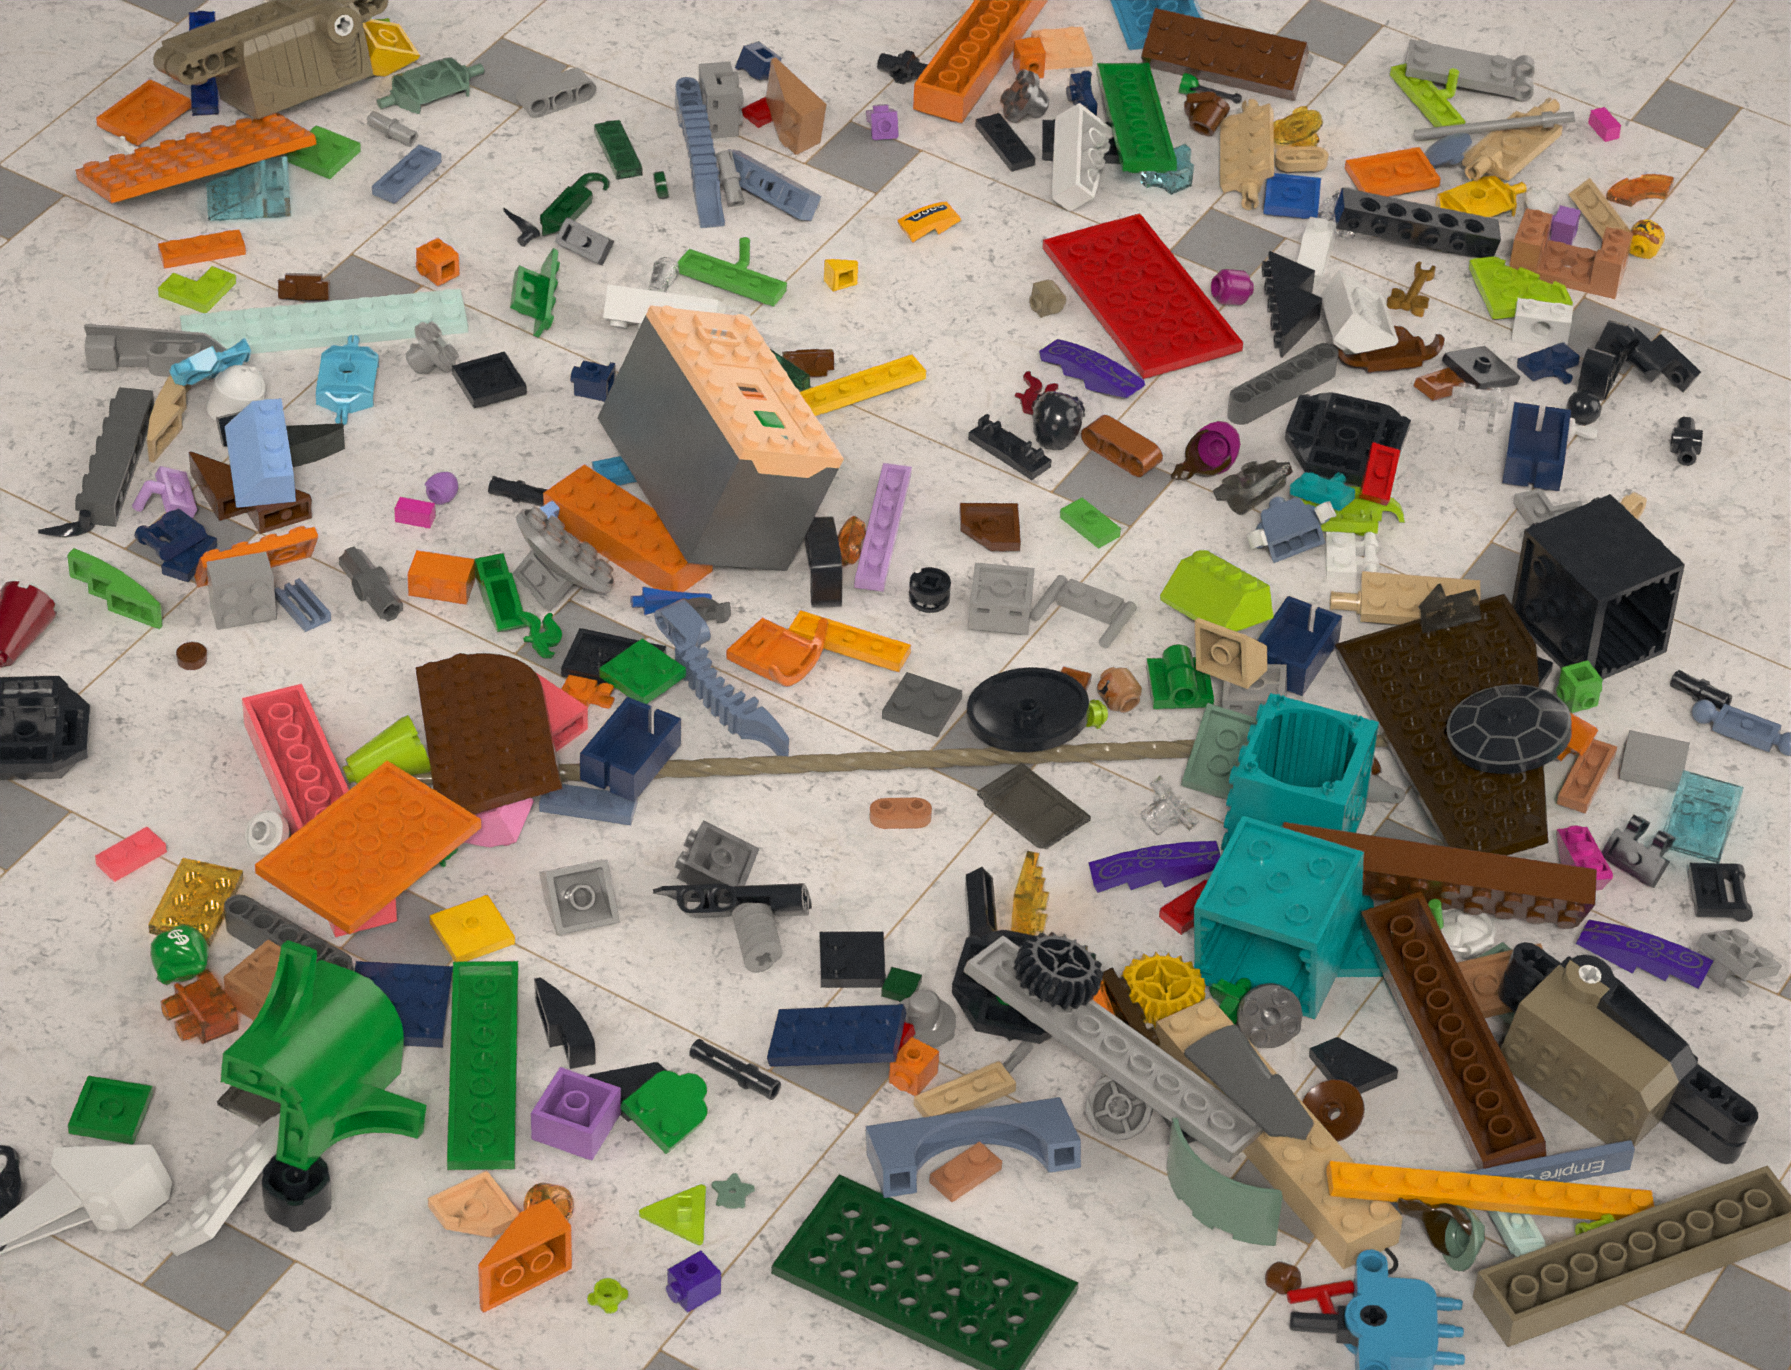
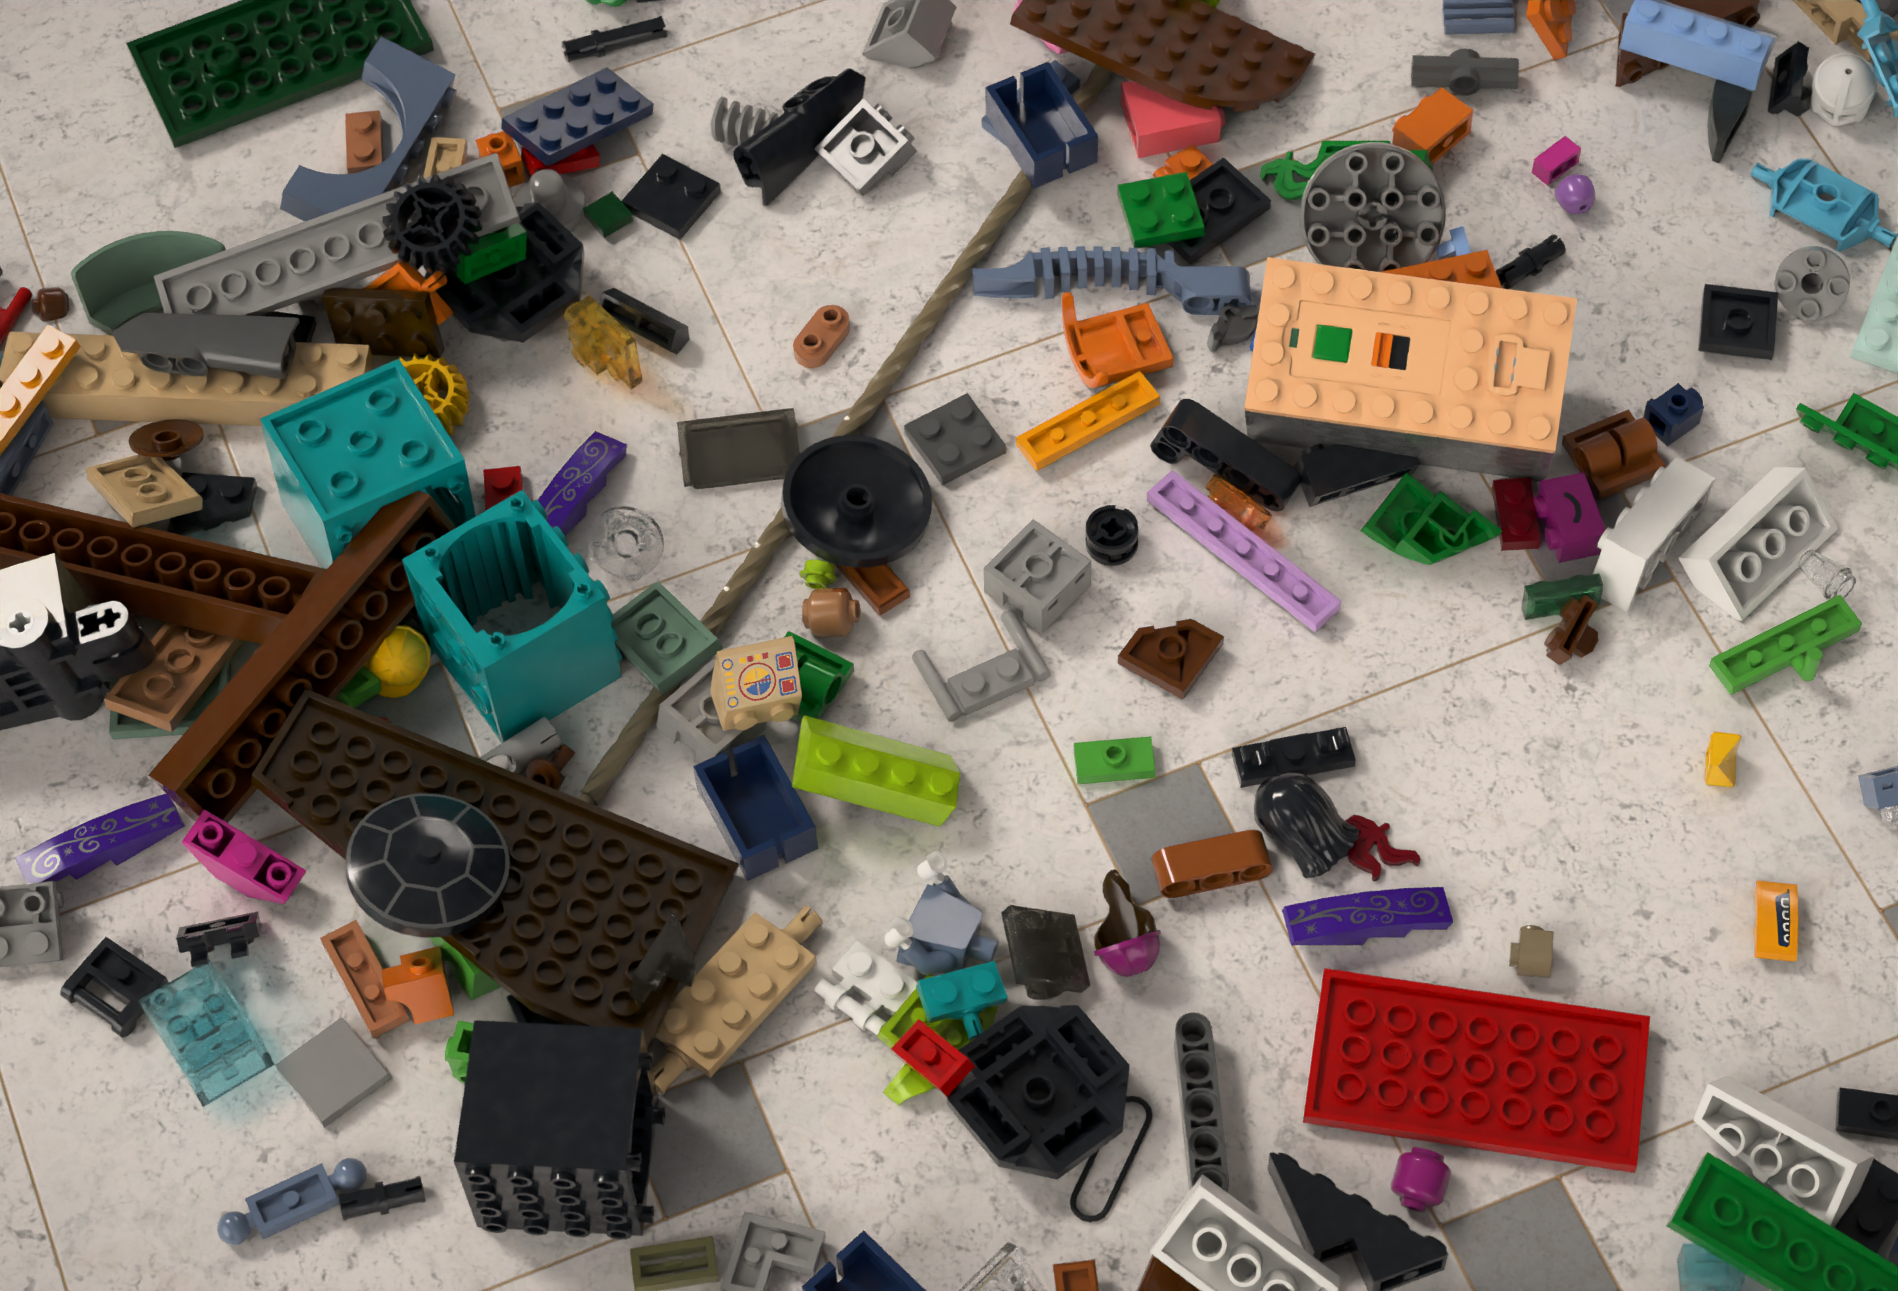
camera: 130 degrees right, 15 degrees up
(864, 384) = (1498, 644): yellow plate -> none
(1391, 1080) = (144, 489): none -> tan tile

